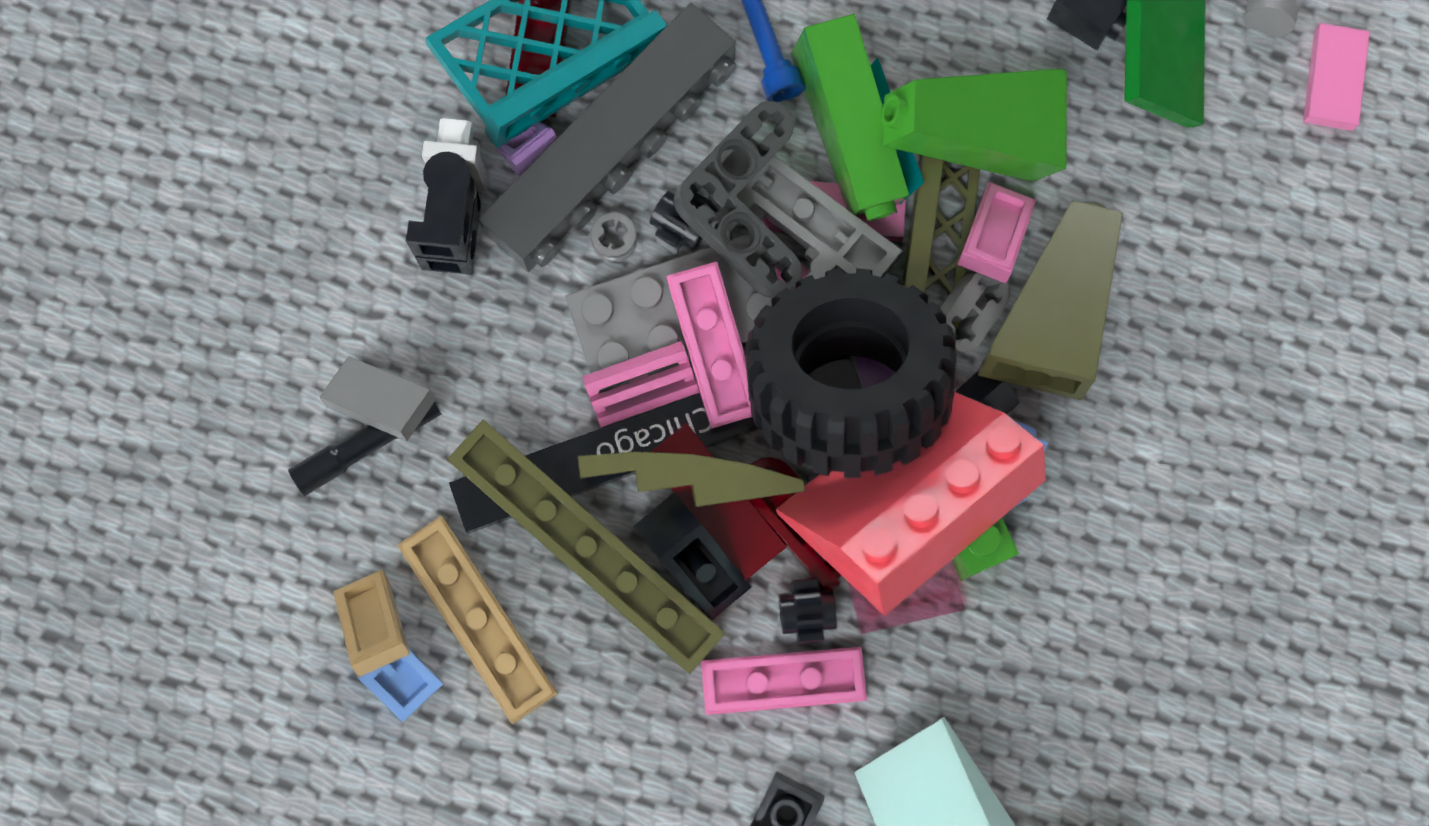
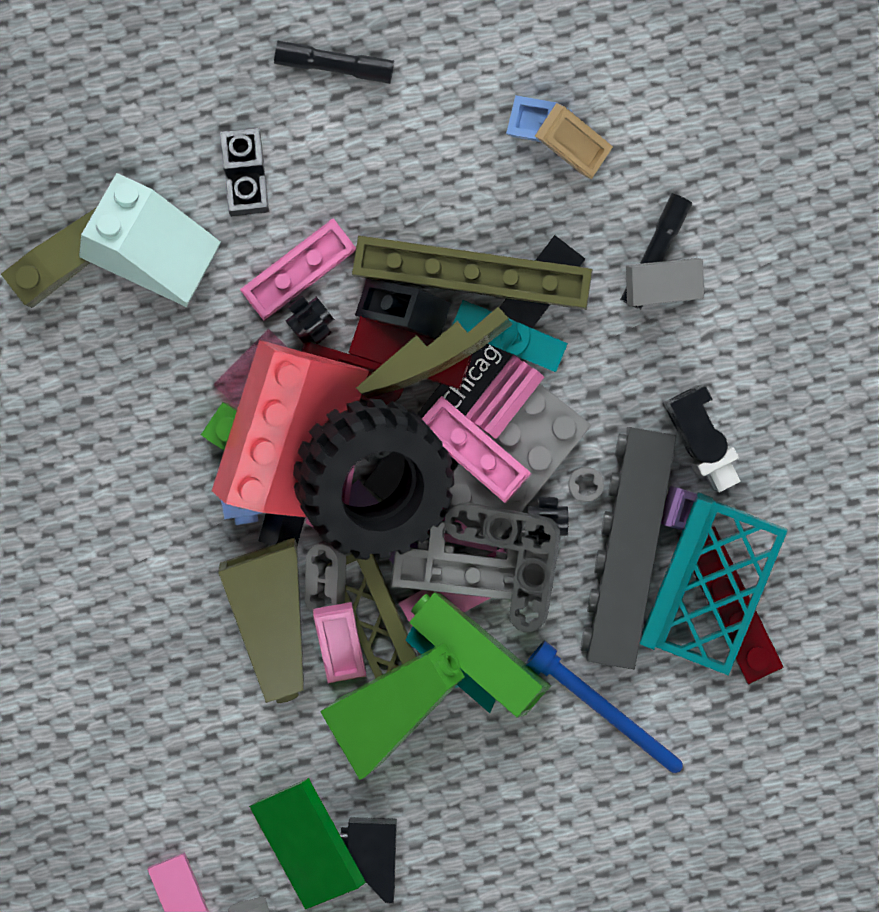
camera: 150 degrees right, 10 degrees up
(477, 620) = (512, 186): tan tile -> none
(583, 436) = (516, 339): none -> teal piece

